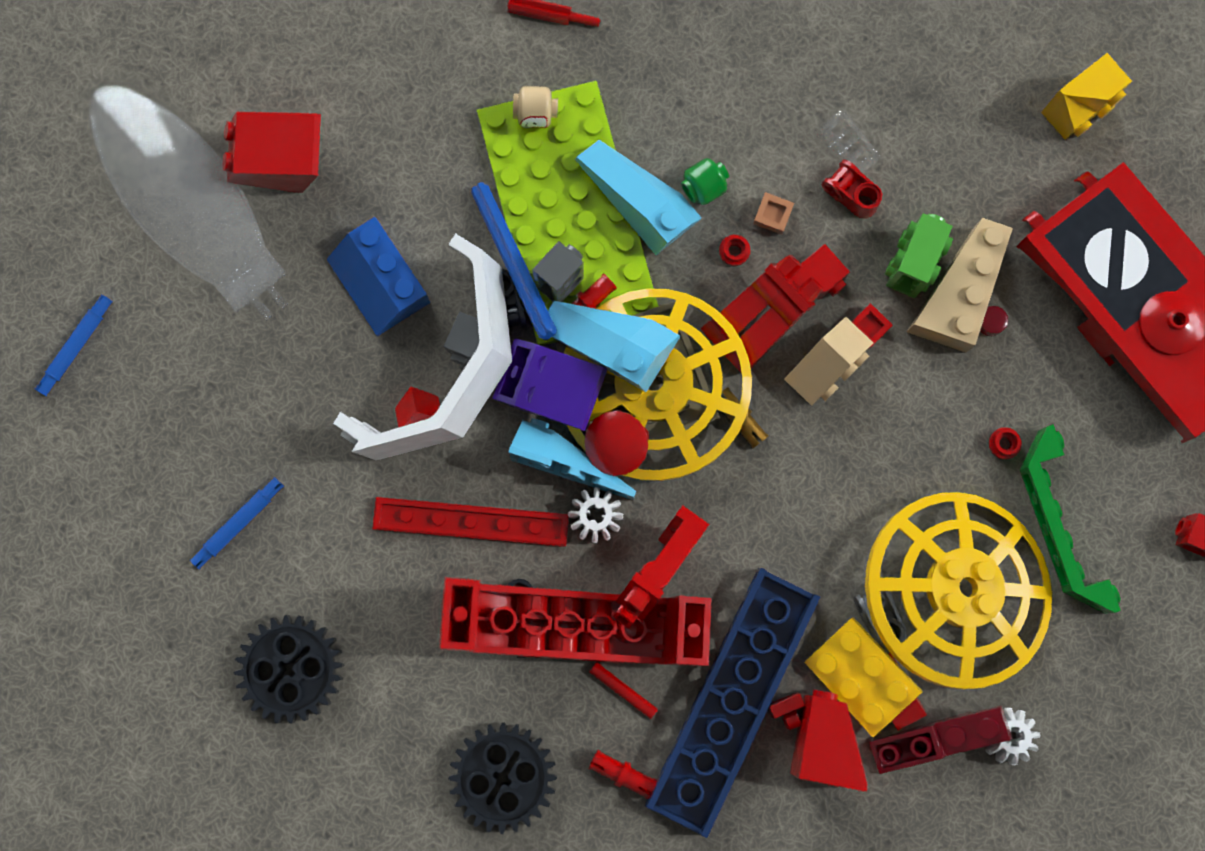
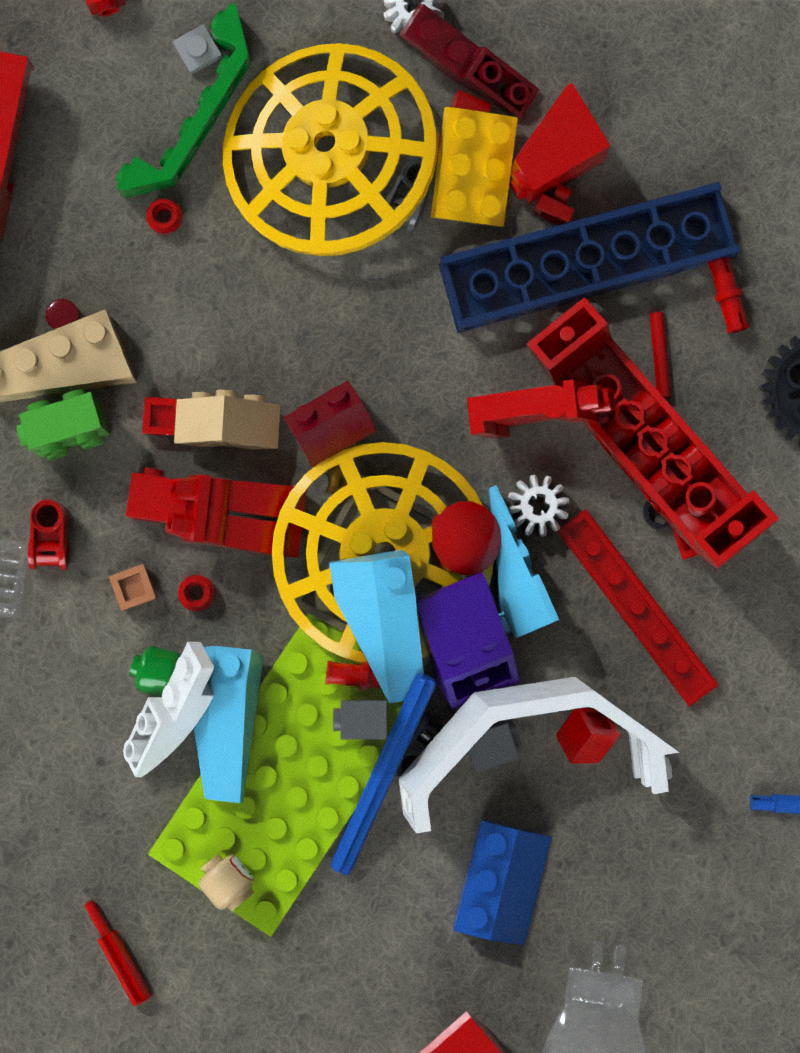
camera: 130 degrees left, 5 degrees up
(670, 161) = (170, 718): none -> white slope
(771, 423) = (330, 423): none -> dark red slope
(1104, 564) = (197, 49): none -> light grey plate

